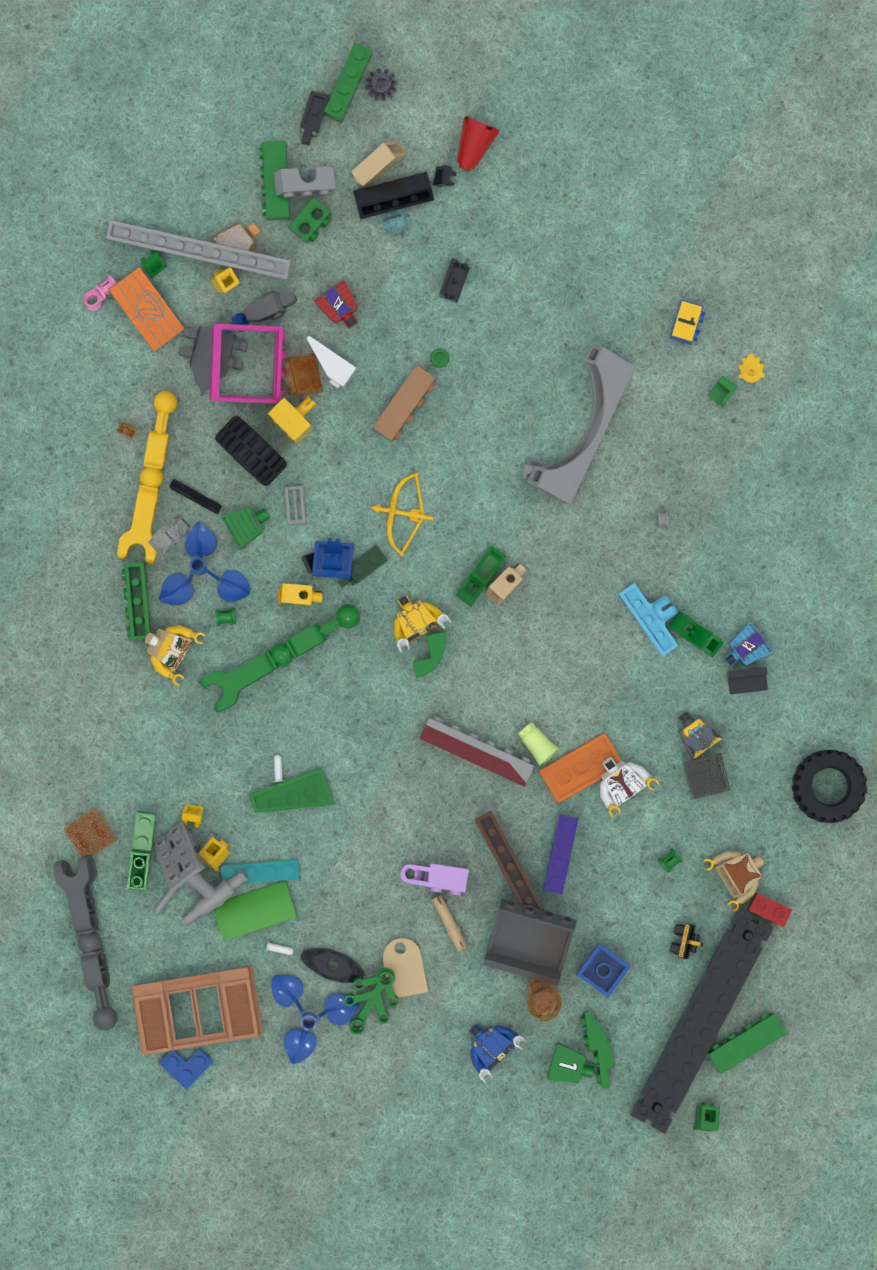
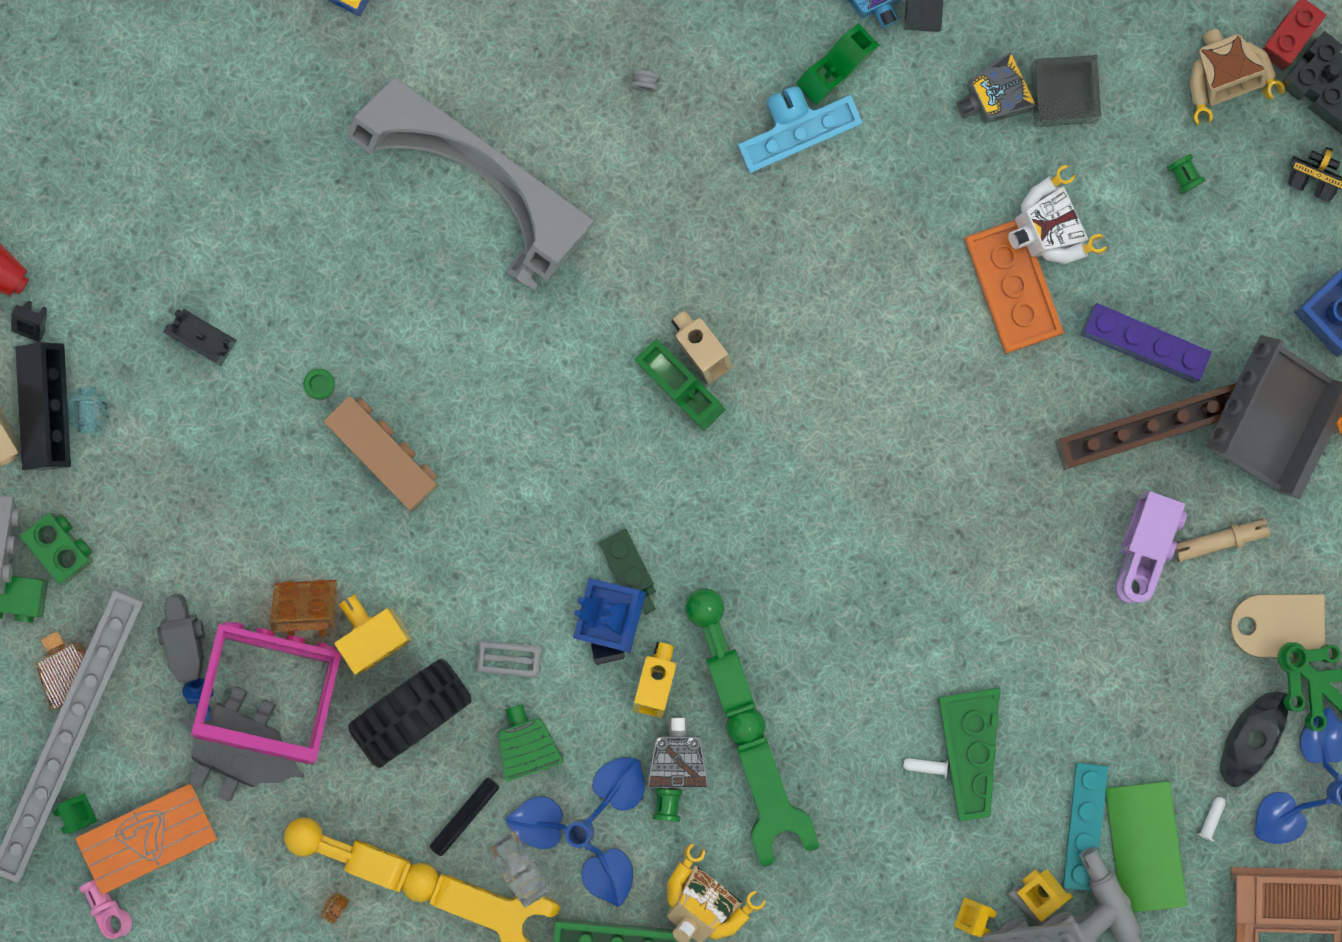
camera: 80 degrees left, 0 degrees up
(224, 280) = (124, 703): yellow brick -> none
(254, 617) = (677, 759): none -> torso
(335, 367) = (299, 554): white slope -> none
(338, 304) = (201, 528): torso -> none
(413, 514) = (561, 473): yellow piece -> none
(416, 621) = (732, 501): yellow torso -> none
(437, 647) = (780, 475): green brick -> none
(474, 751) = (959, 444): brick -> none
(538, 743) = (964, 345): yellowish green plant -> none

